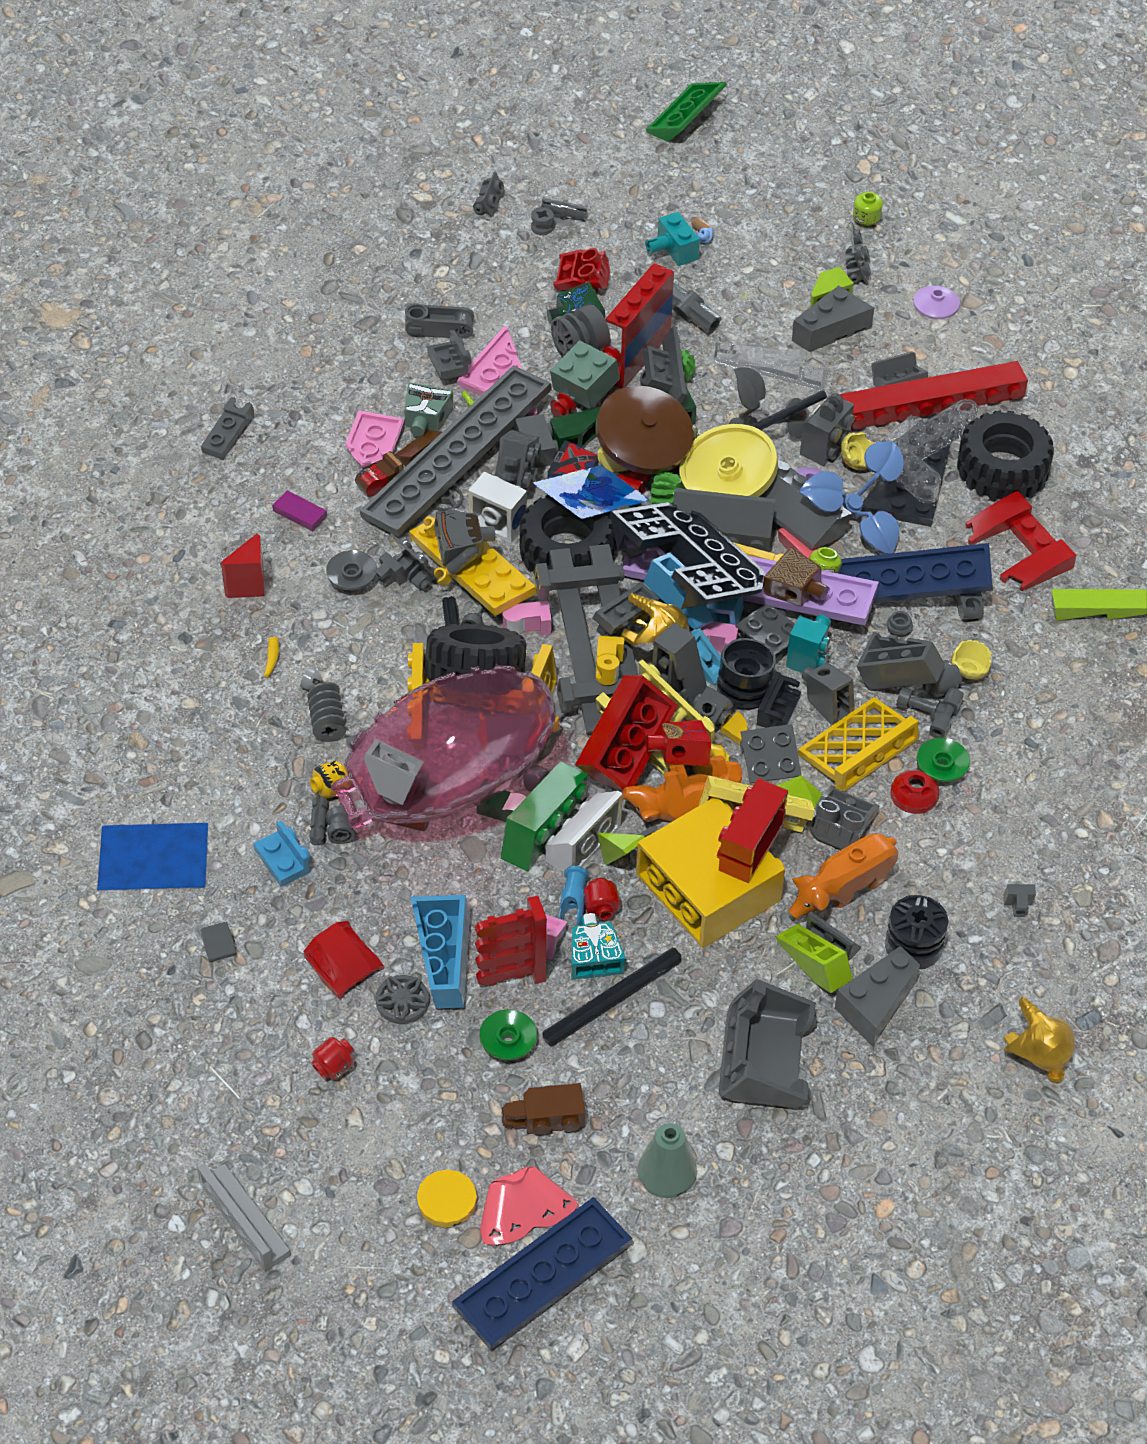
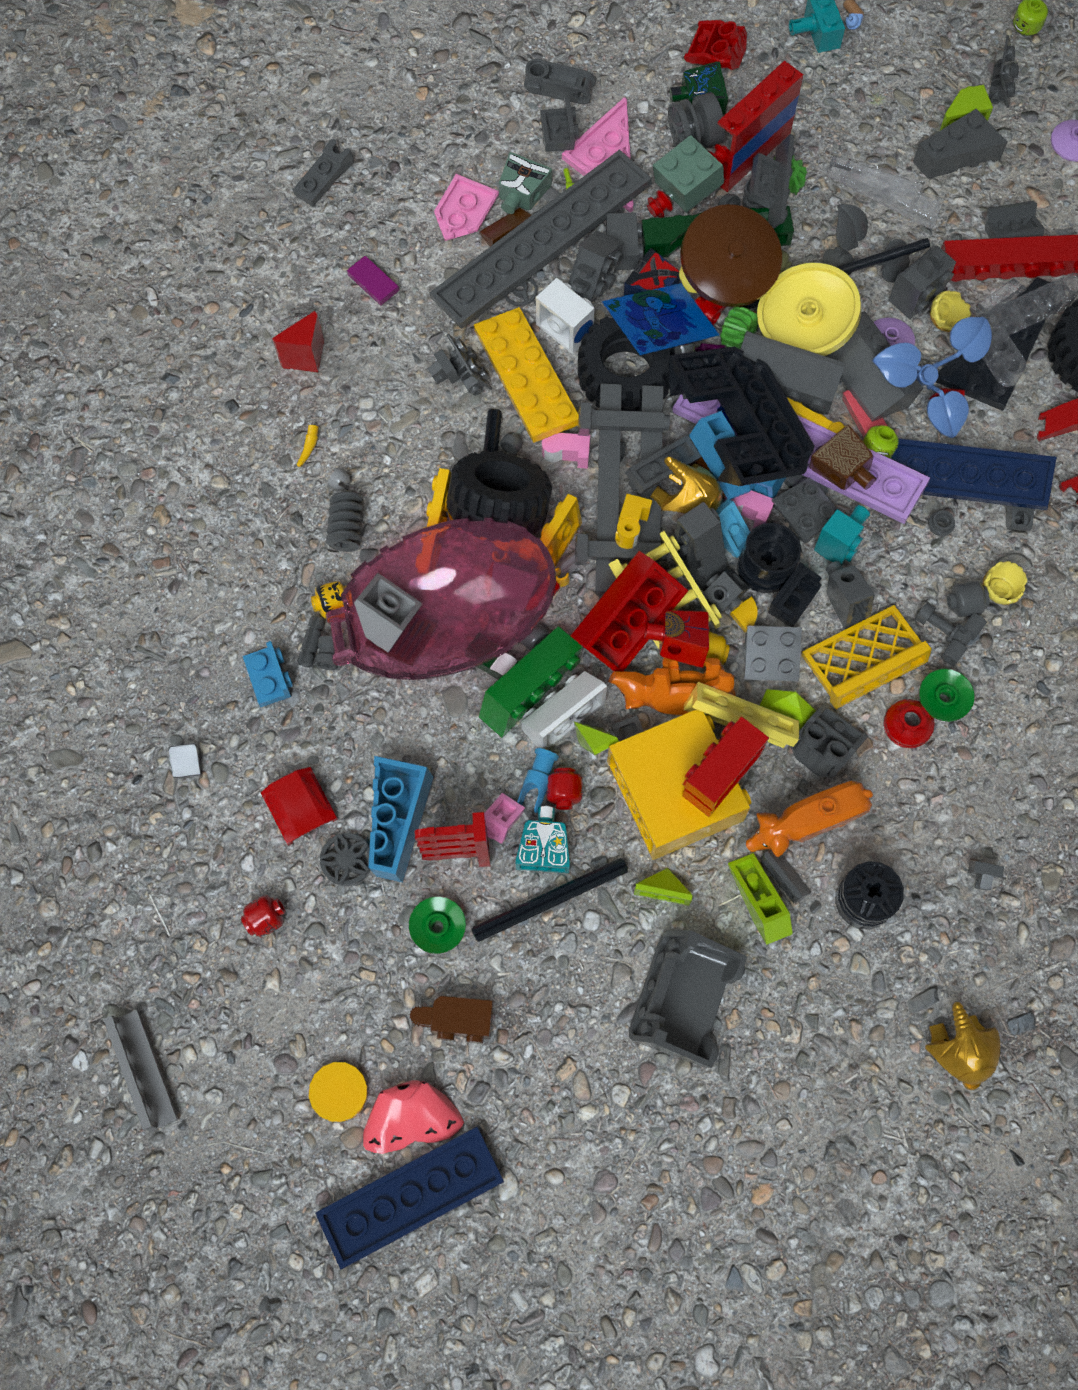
camera: 15 degrees right, 20 degrees up
(153, 856) = (147, 648): clear blue sticker -> none
(351, 570) = (406, 352): dark grey dish -> none
(376, 477) = (458, 254): leg -> none
(458, 540) = (514, 351): dark grey torso -> none
(667, 1163) = (553, 1119): sand green cone -> none
(692, 307) = (819, 109): dark grey piece -> none
(720, 967) = (664, 887): none -> lime slope
(877, 993) = (813, 956): dark grey wedge -> none
(899, 662) = (928, 578): dark grey wedge -> none

